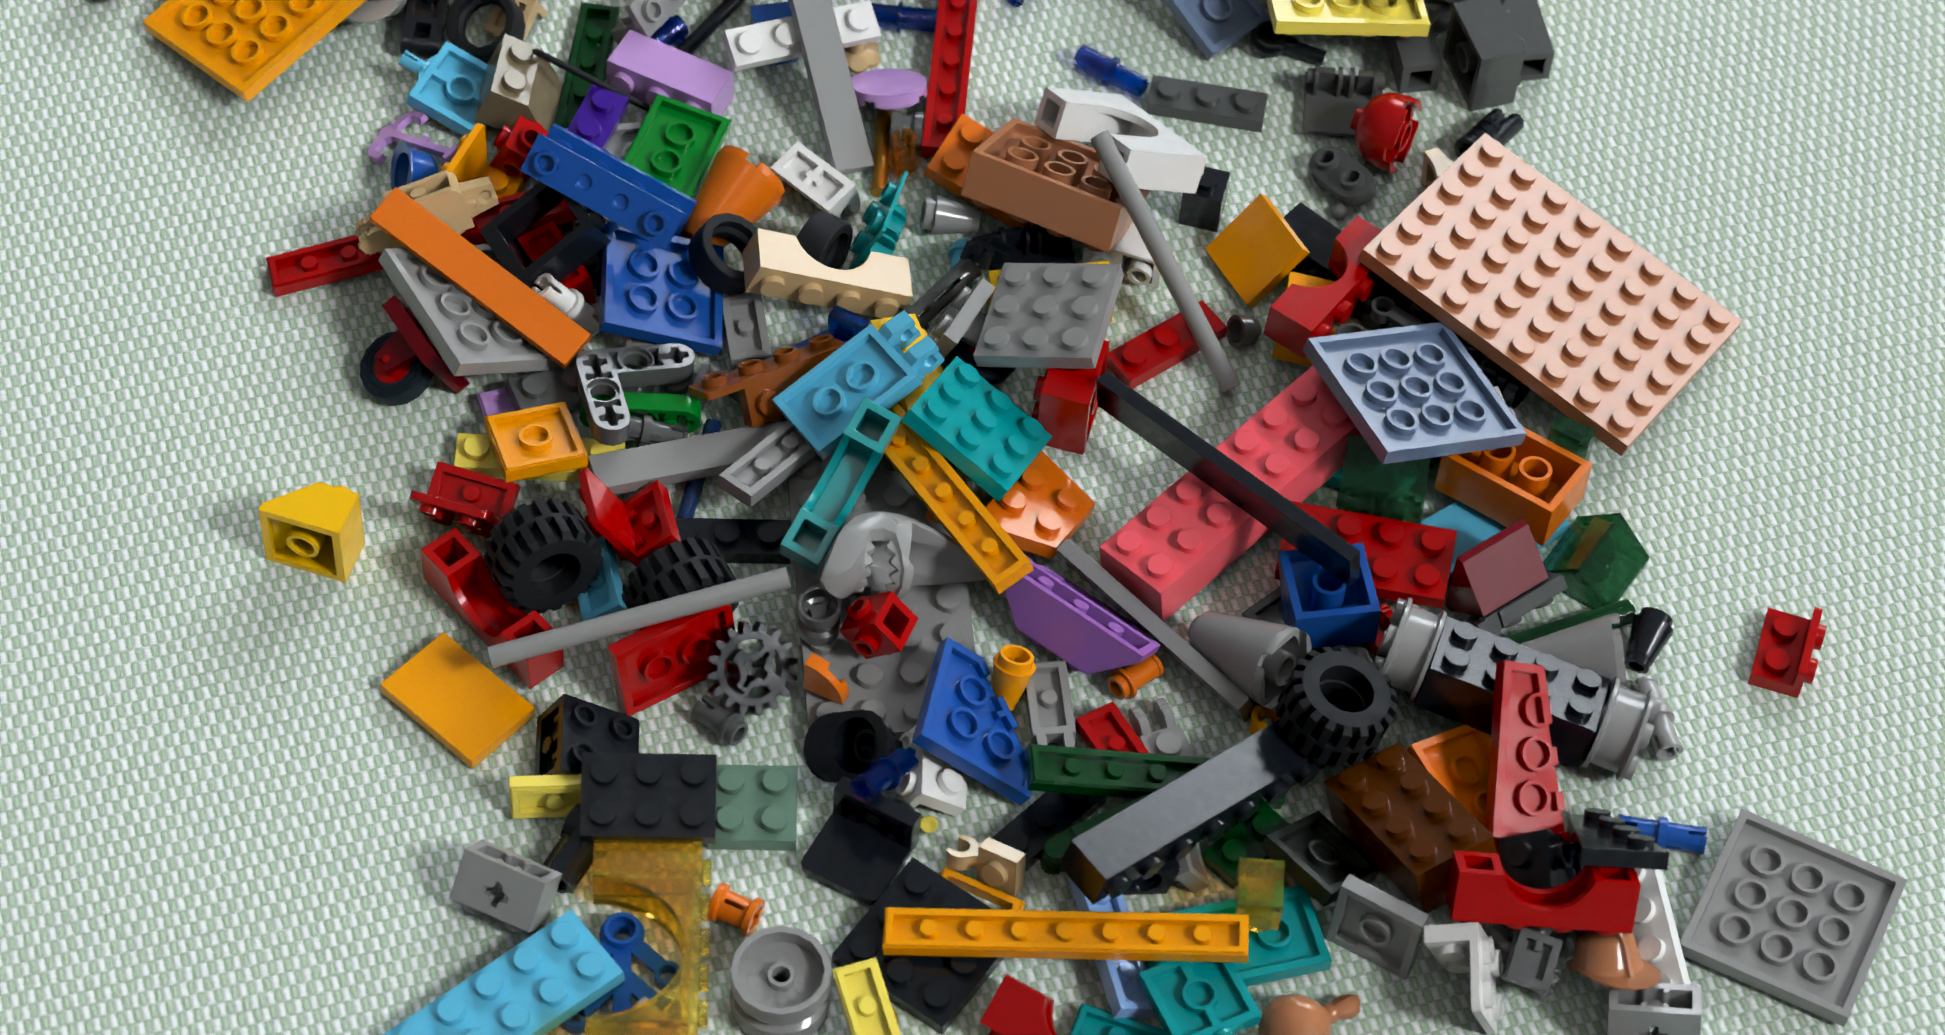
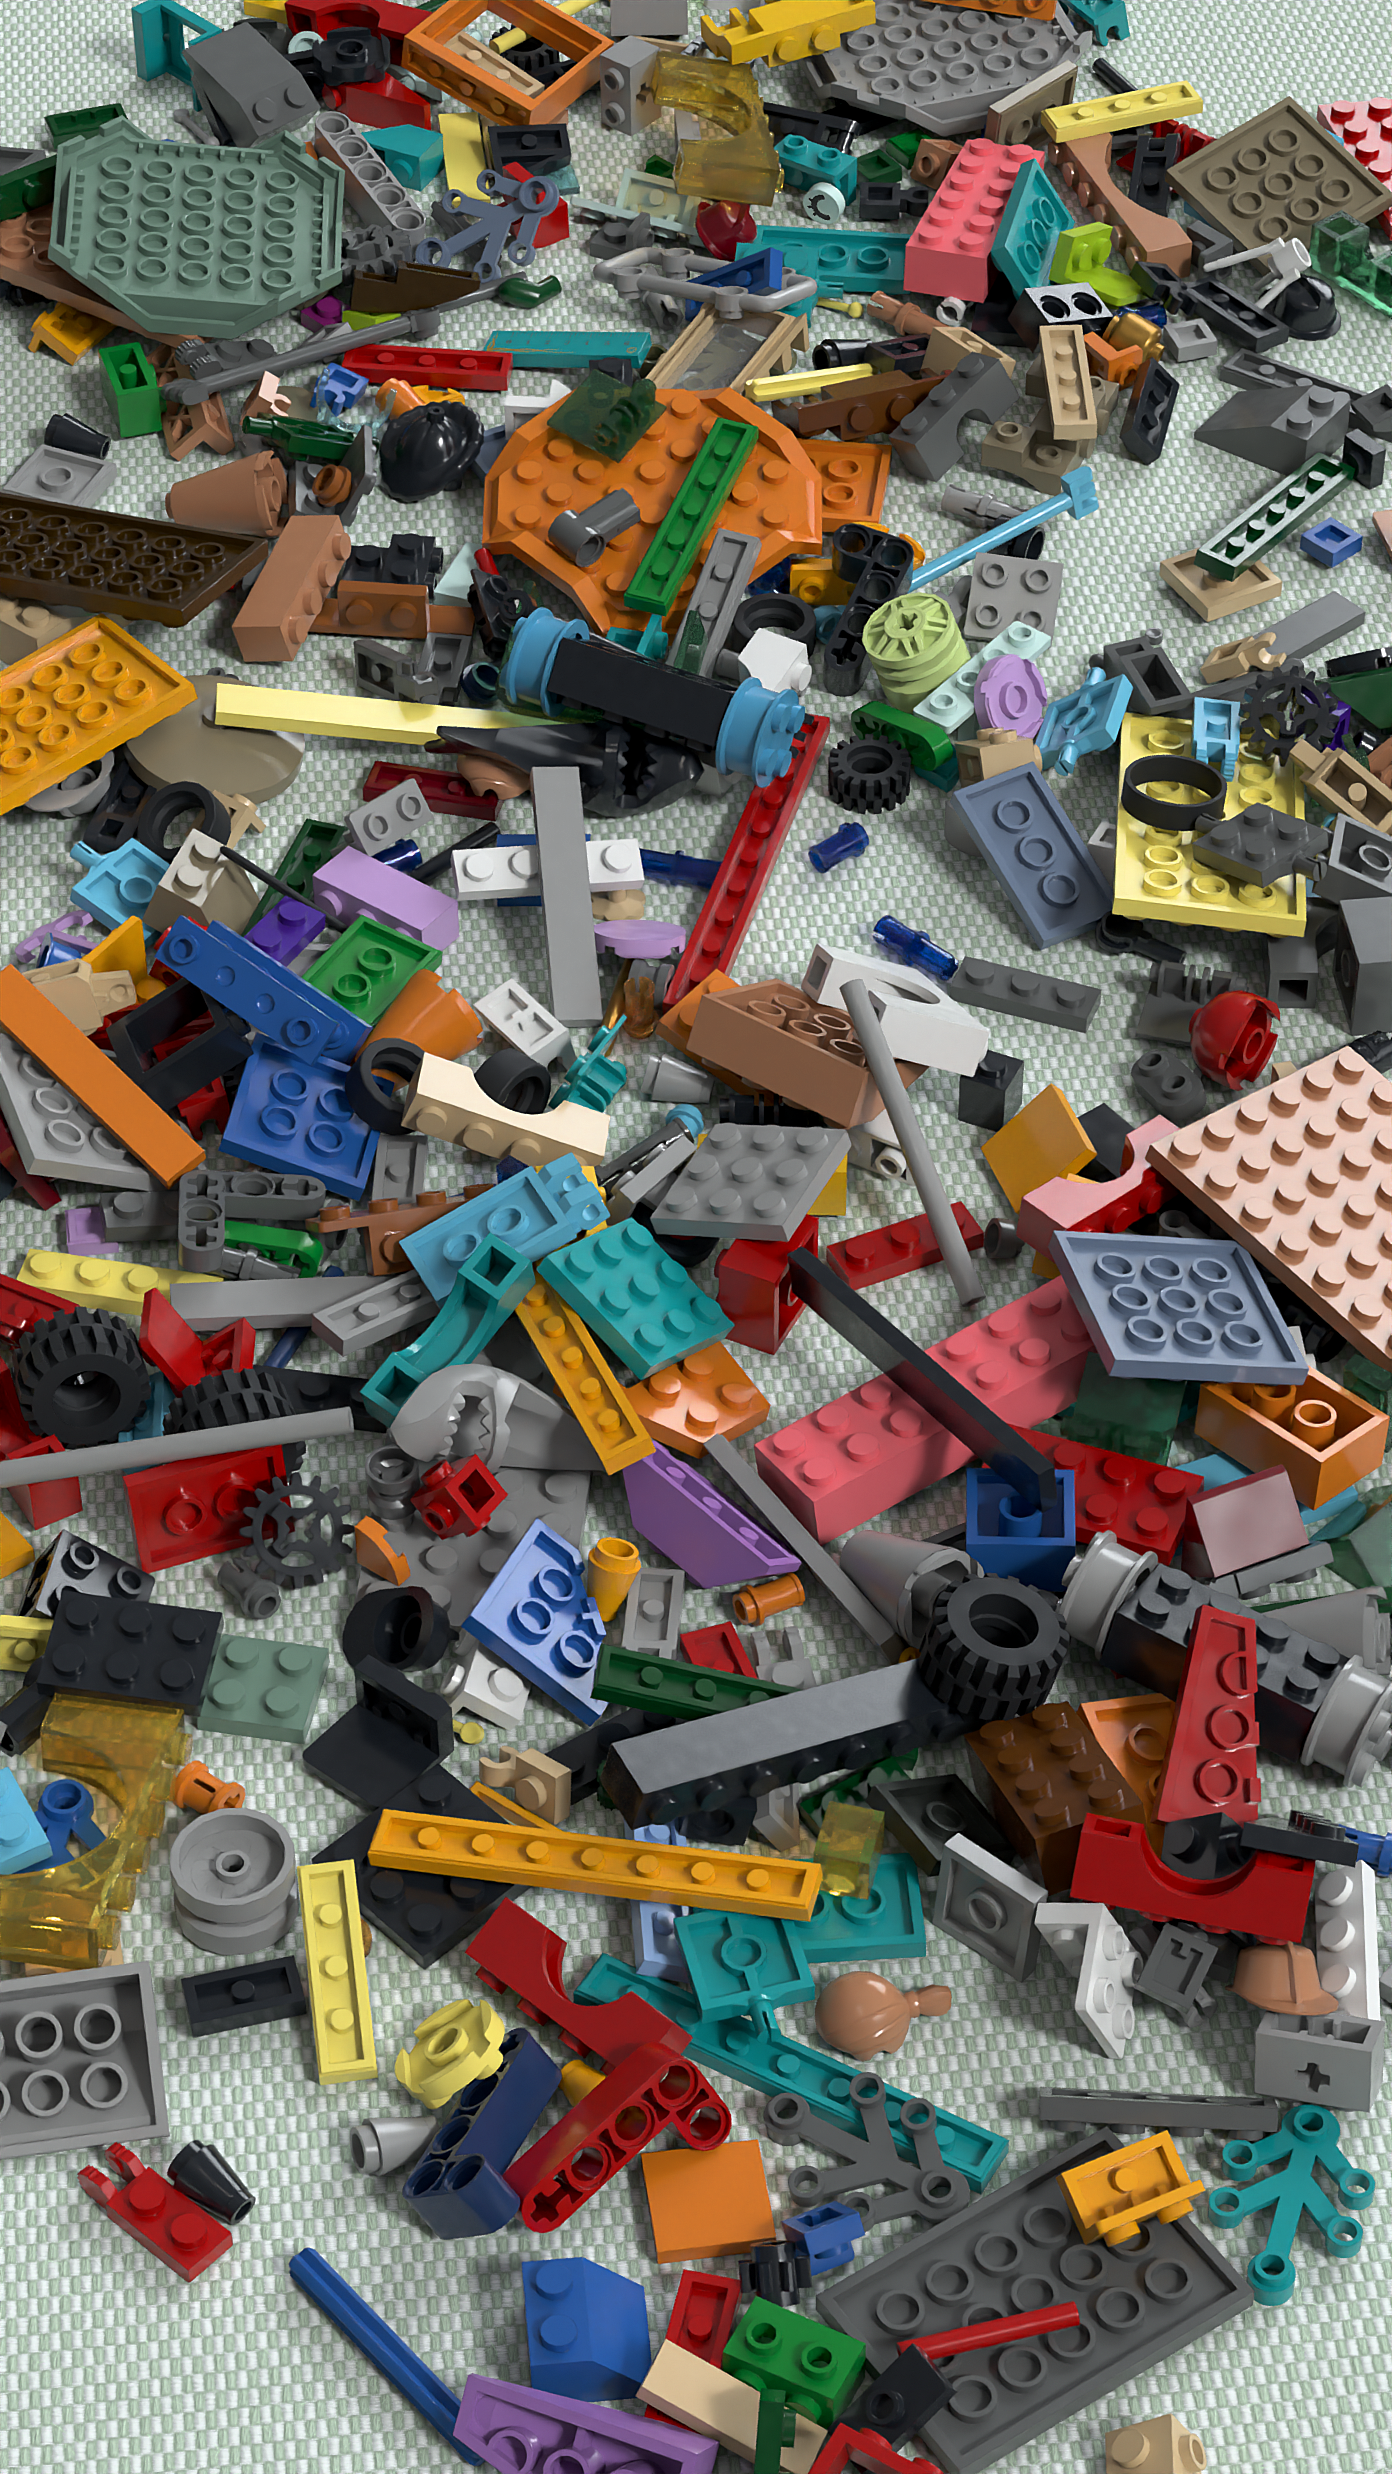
camera: 15 degrees right, 10 degrees down
(535, 441) = (113, 1262): light orange tile -> none
(569, 302) = (192, 1119): white pin -> none
(884, 774) = (418, 1657): clear blue axle -> none
(990, 252) = (702, 1113): black plate -> none

